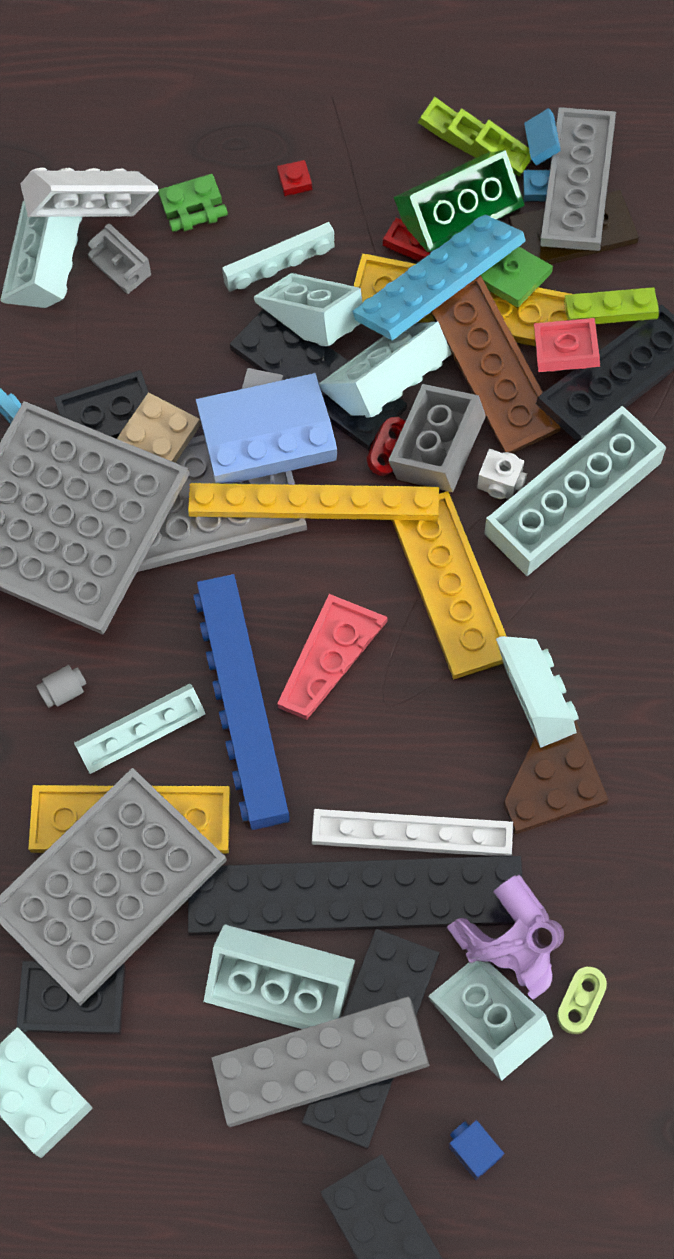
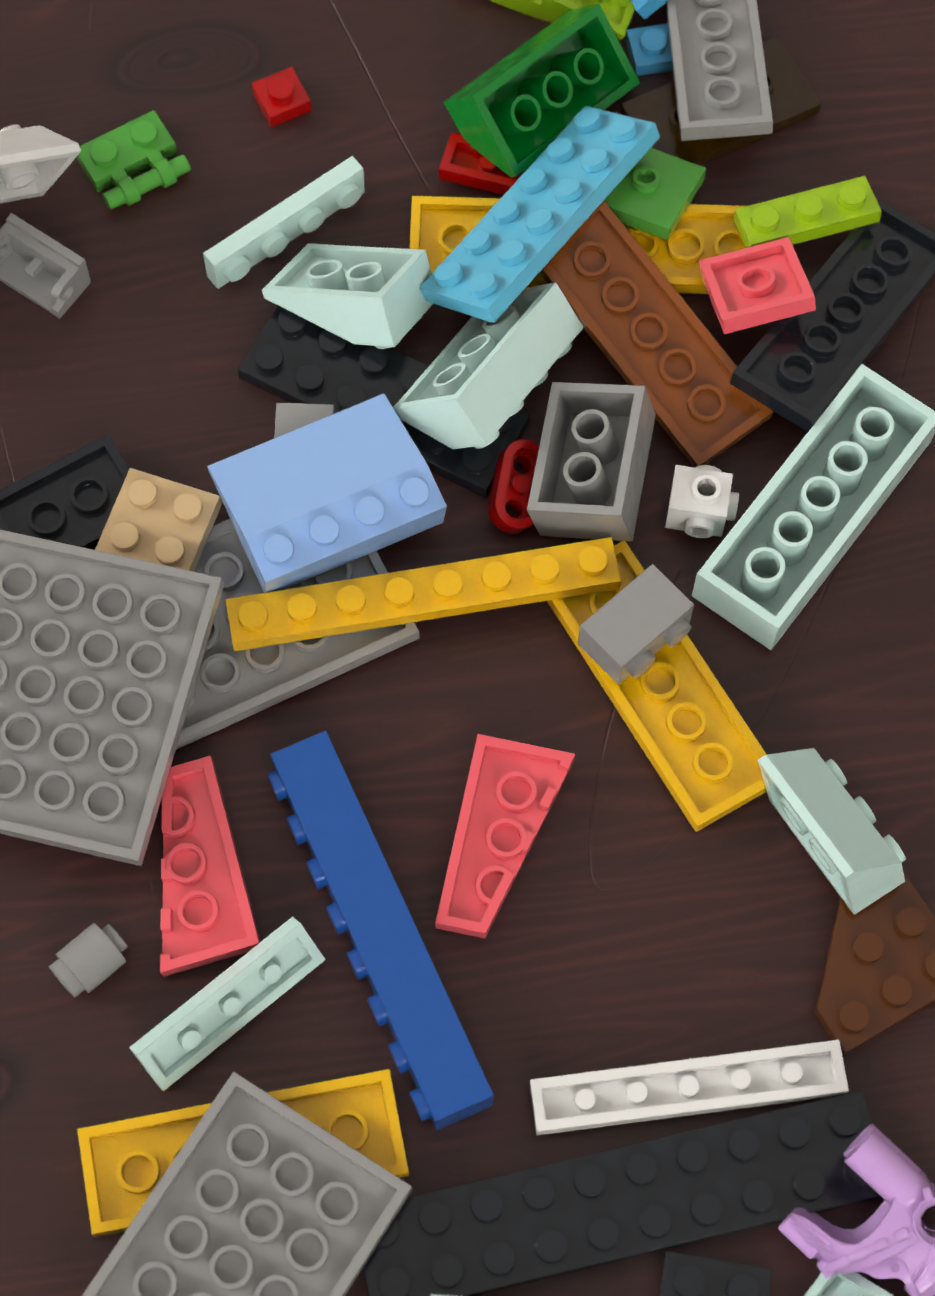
camera: 15 degrees left, 0 degrees up
(141, 653) = (204, 888): none -> coral wing
(441, 543) = (636, 625): none -> light grey brick

